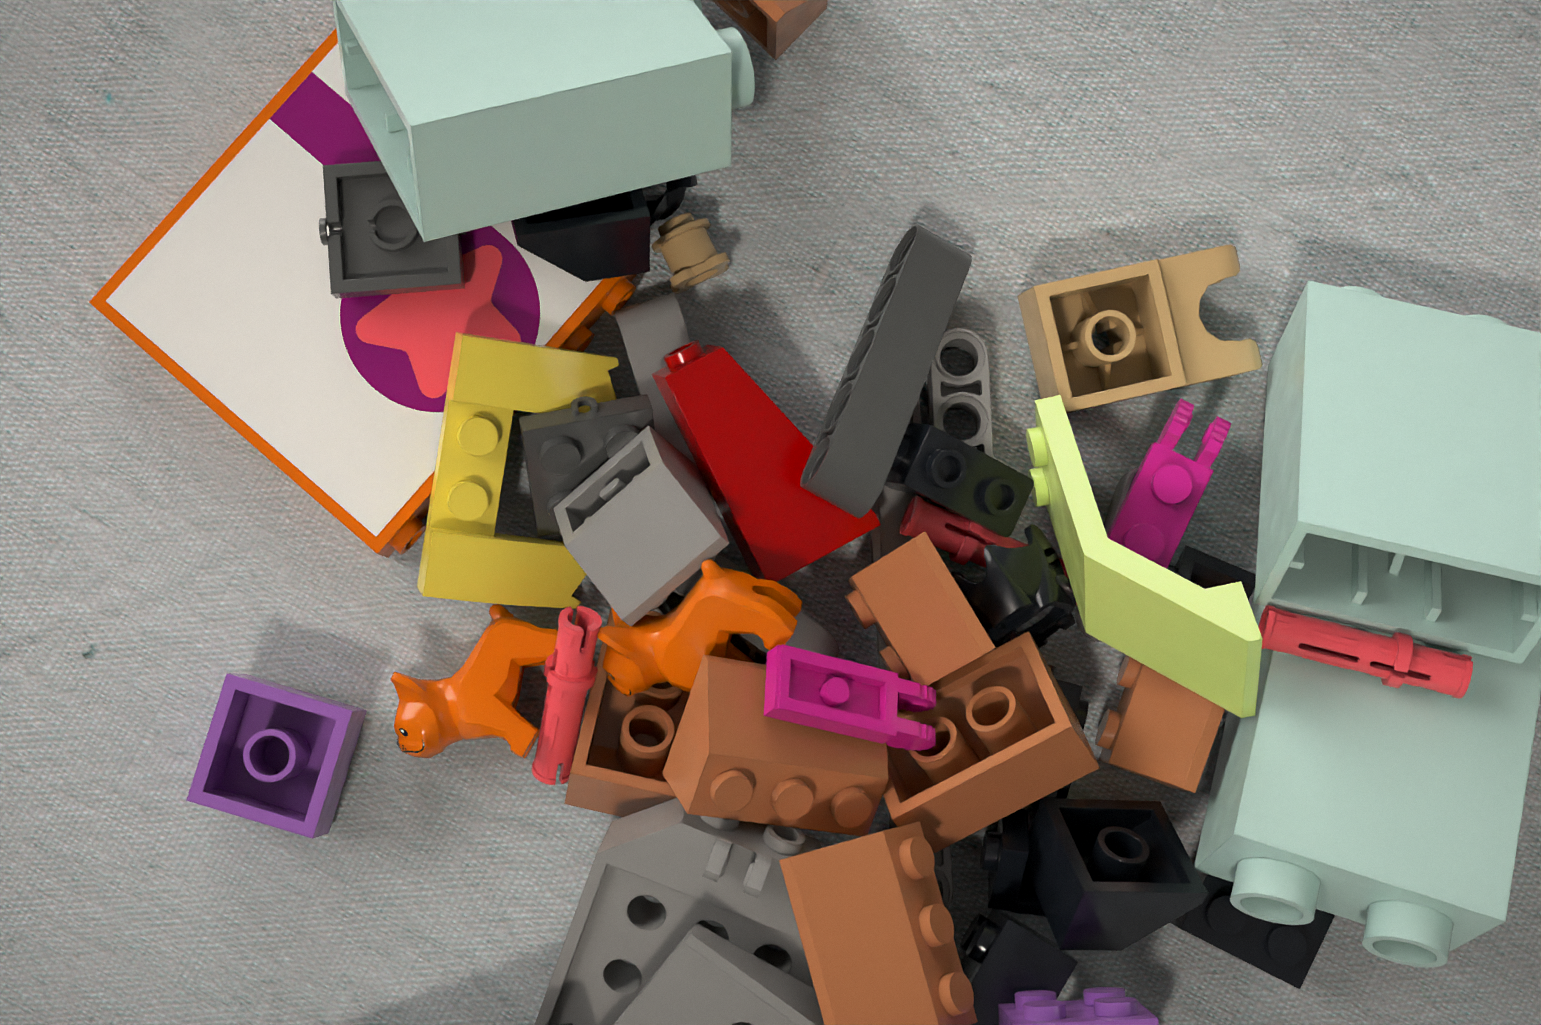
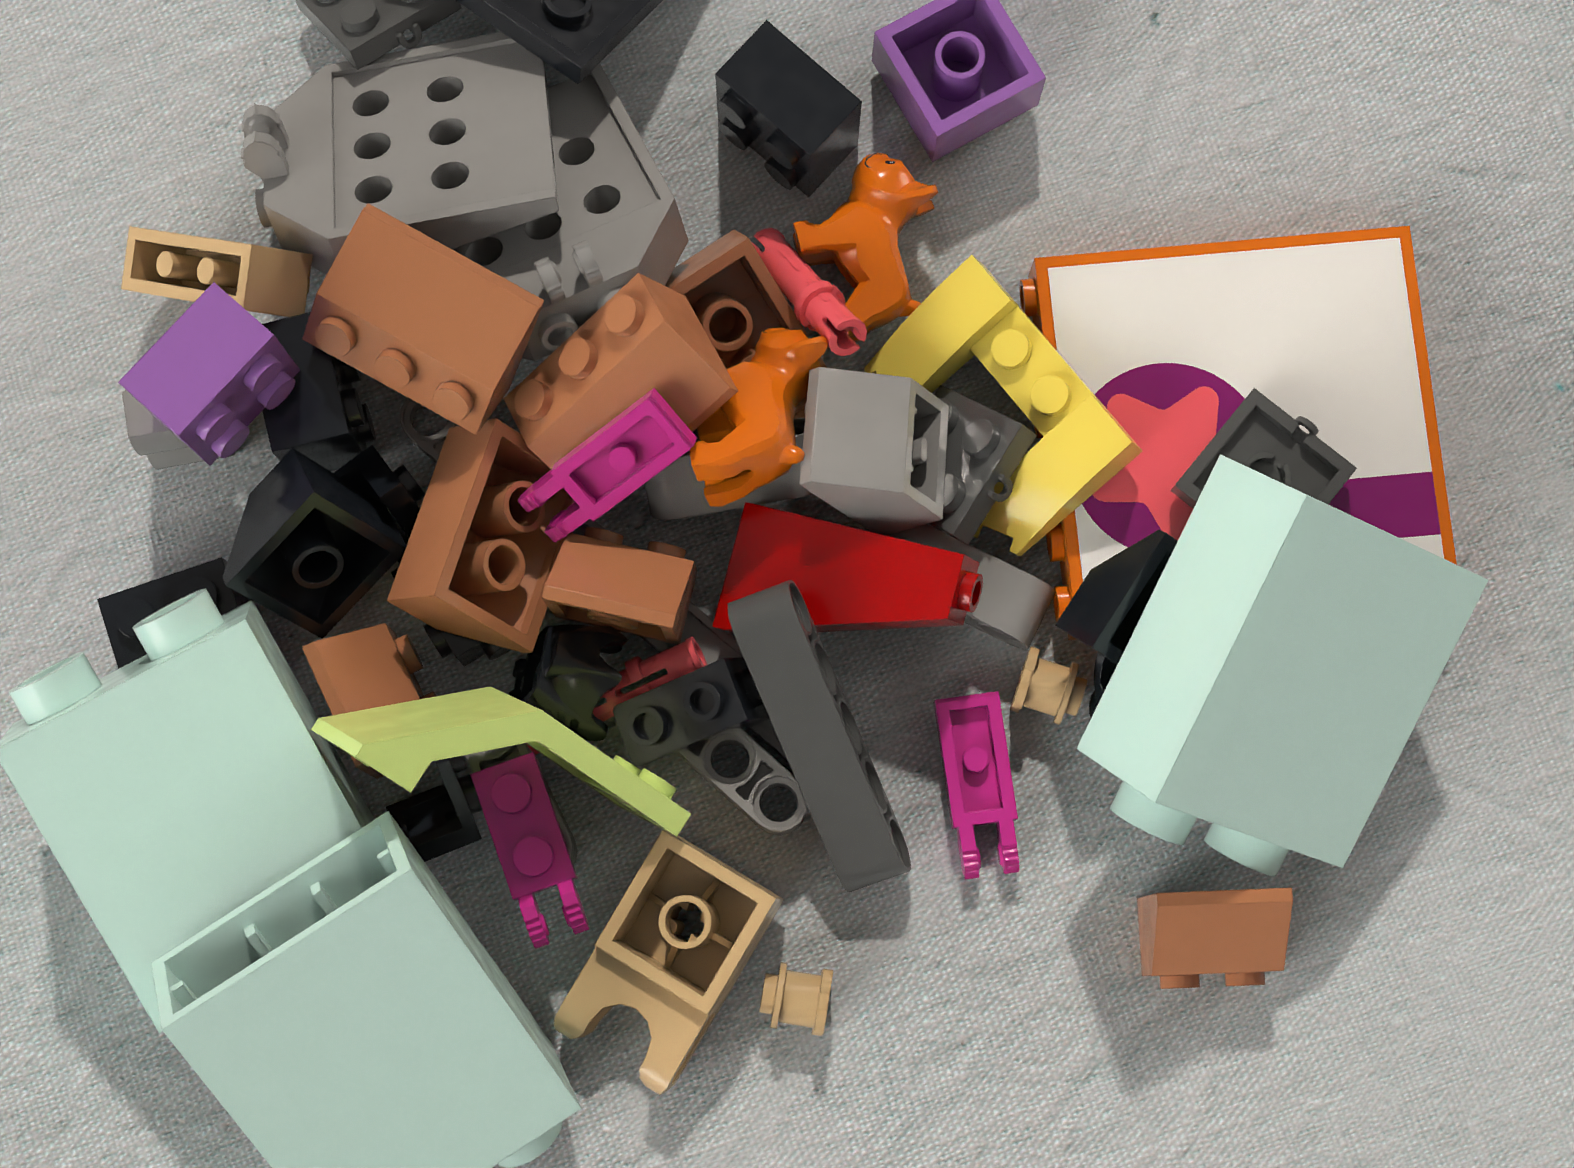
camera: 135 degrees right, 5 degrees down
(437, 850) = (786, 110): none -> black brick
(799, 243) = (977, 776): none -> dark pink hinge
(1076, 220) = (797, 998): none -> tan brick
(1390, 658) = (261, 861): coral pin -> none

